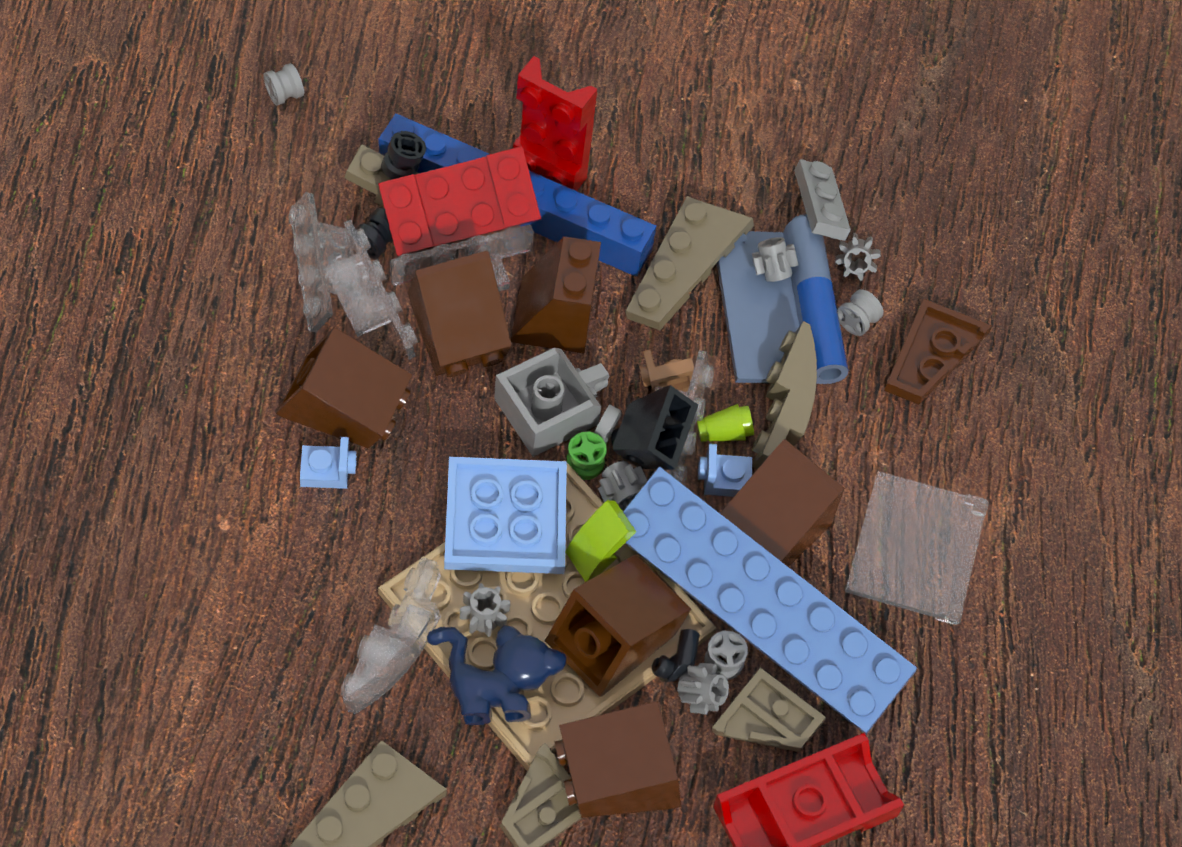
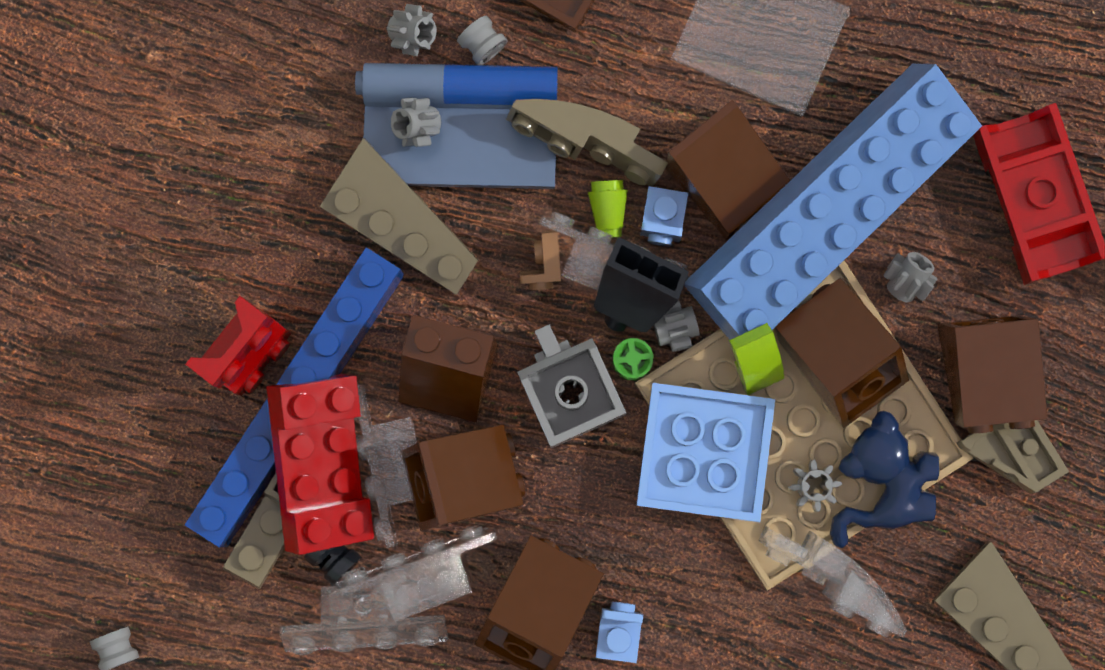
camera: 70 degrees left, 25 degrees up
(403, 155) = (261, 528): black wheel -> none
(608, 422) = (599, 331): light grey tile -> none
(674, 667) = (881, 296): black arm -> none
(732, 648) = (880, 247): light grey wheel -> none
(769, 715) = (938, 215): dark tan wing -> none
(822, 200) = (337, 56): light grey plate -> none

